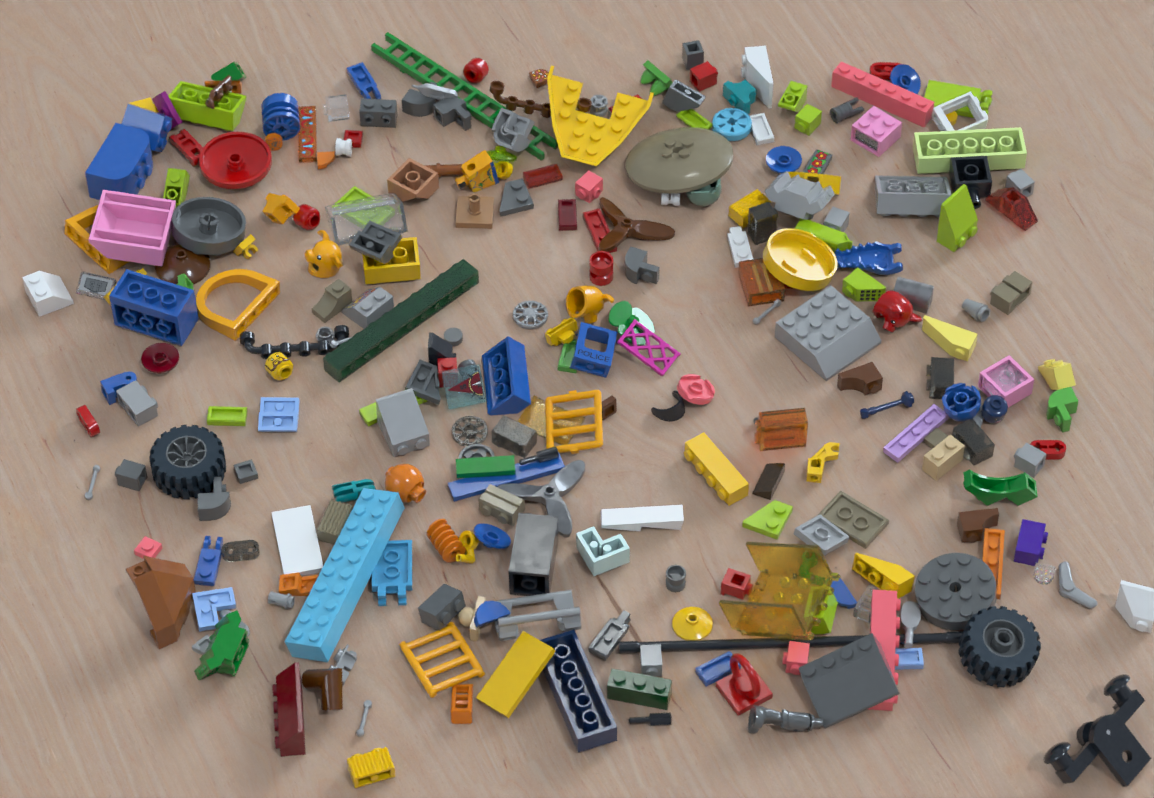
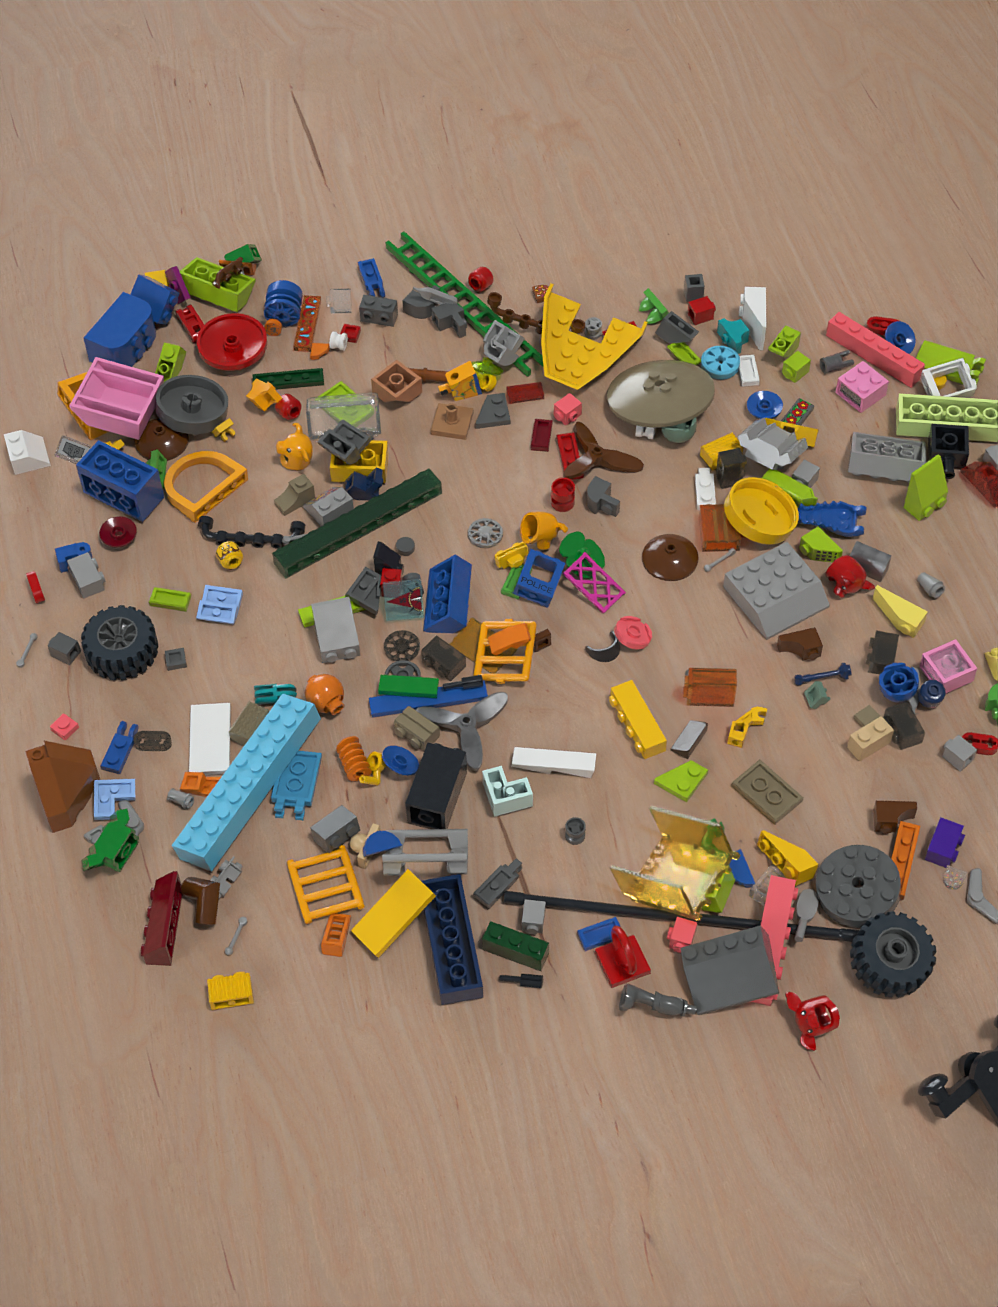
camera: 10 degrees right, 5 degrees up
(214, 505) = (137, 690): dark grey brick -> none
(305, 189) = (293, 378): none -> dark green tile
(325, 333) = (281, 527): flat silver plate -> none
(401, 285) = (364, 487): none -> dark blue brick
(579, 406) = (509, 637): none -> orange slope
(690, 629) = (580, 888): yellow dish -> none
(717, 315) = (670, 557): none -> reddish brown dish
(736, 584) = (635, 846): red brick -> none
(821, 533) = (730, 805): light grey hinge -> none
(884, 424) = (816, 695): none -> sand green tile
(909, 658) = (798, 951): light blue tile -> none
(915, 433) = (846, 708): lavender plate -> none
(933, 712) = (813, 1017): none -> red piece
(990, 489) = (912, 780): green arch -> none
(1010, 292) = (969, 571): dark tan piece -> none

